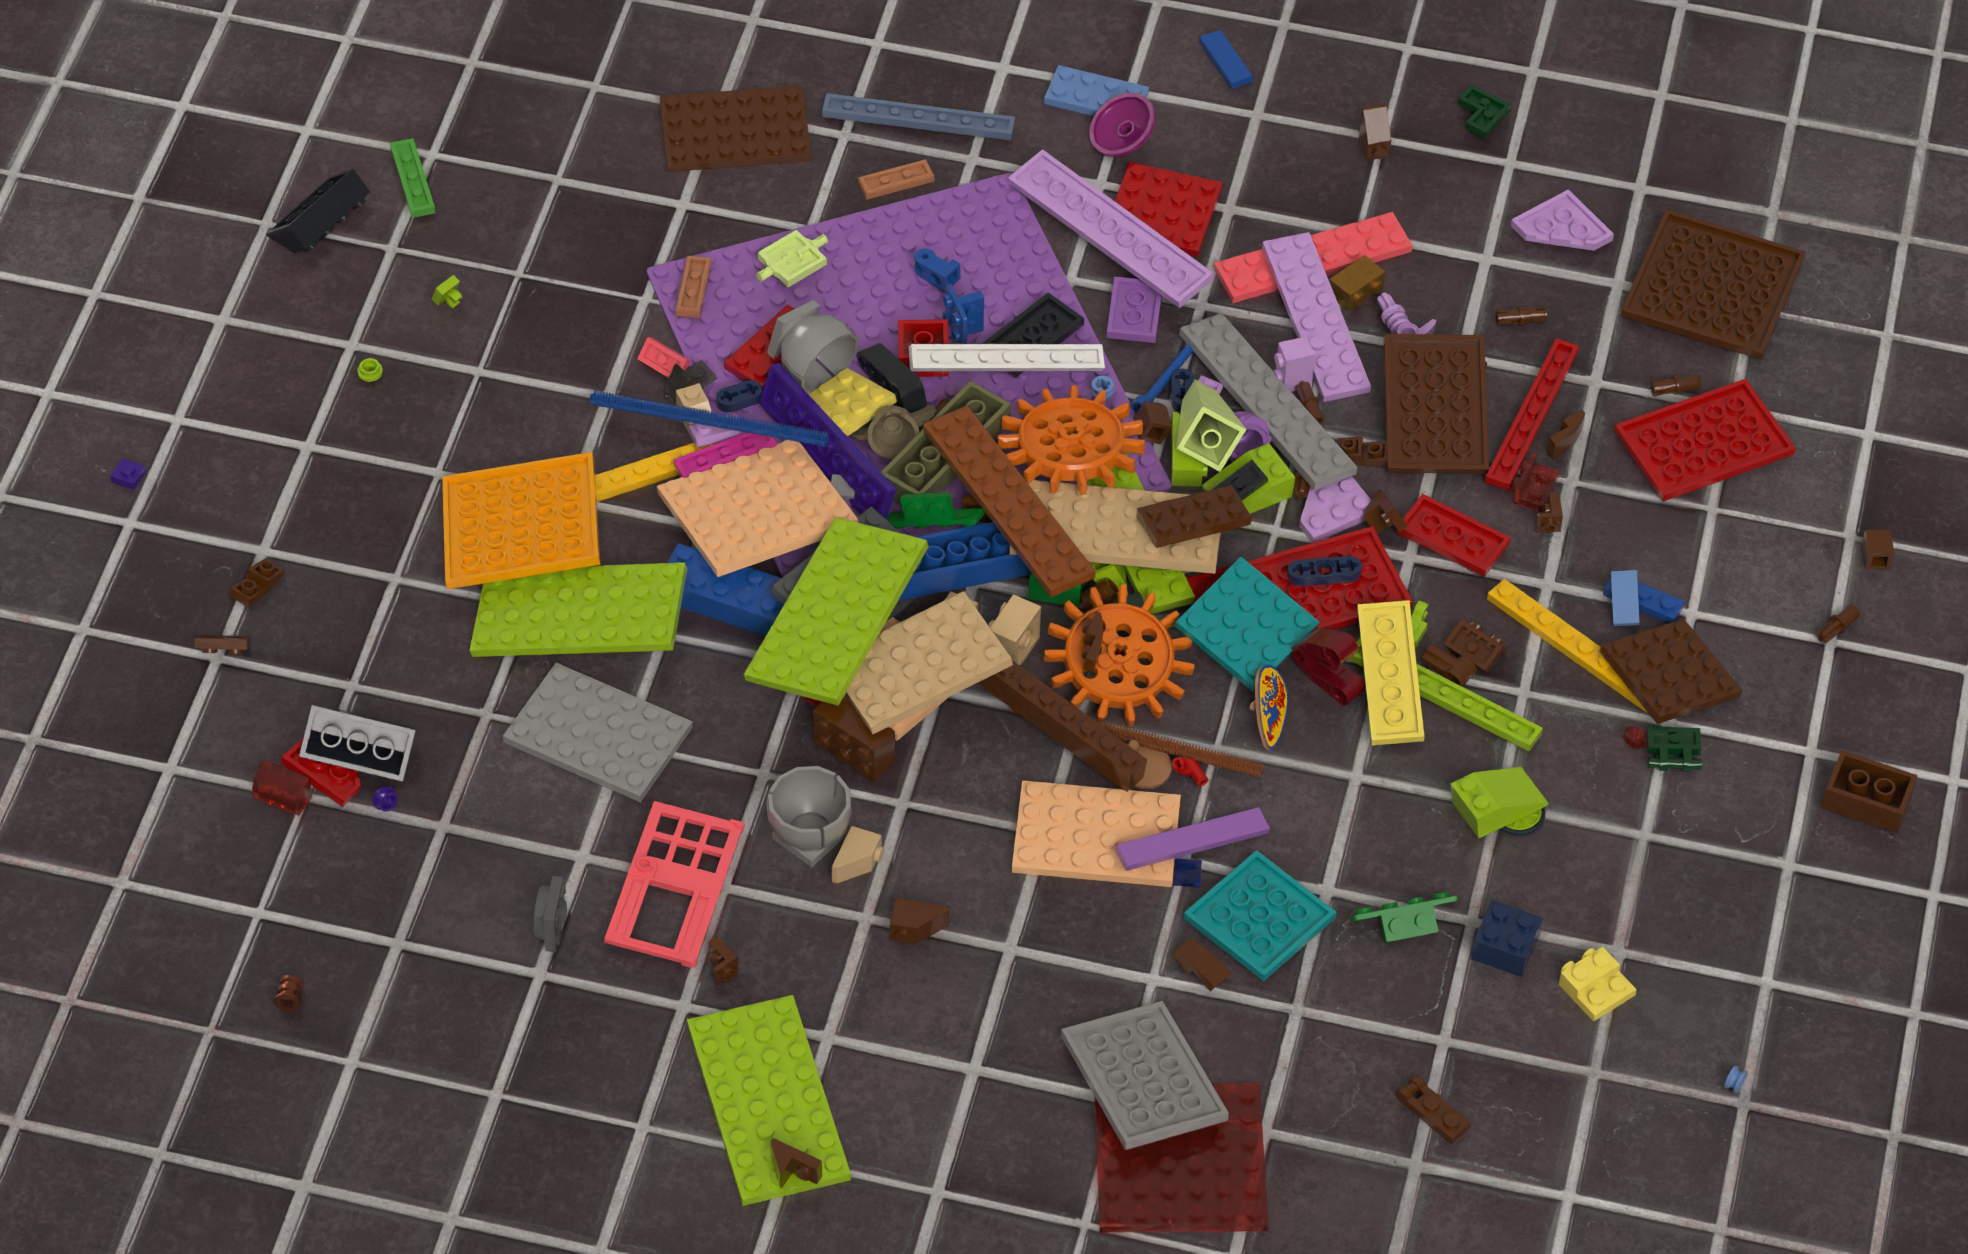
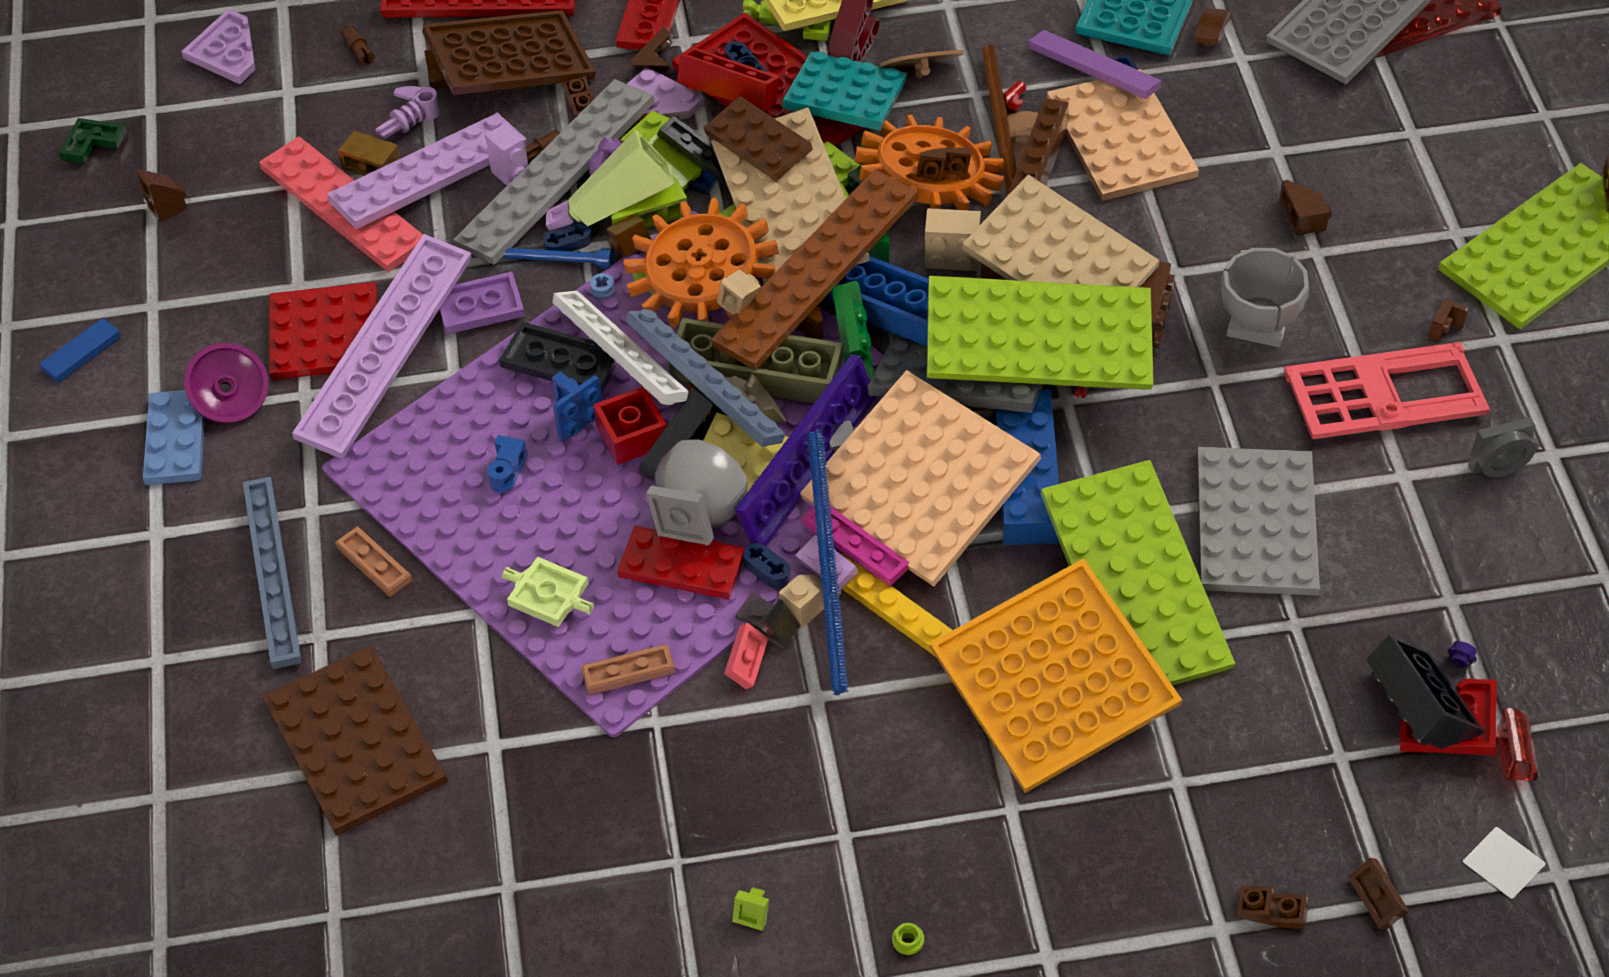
camera: 110 degrees left, 0 degrees up
(201, 740) = (1504, 862): none -> white sticker
(926, 385) = (705, 377): none -> sand blue plate
(996, 424) = (737, 291): none -> tan slope
(1302, 538) = (727, 78): none -> red brick

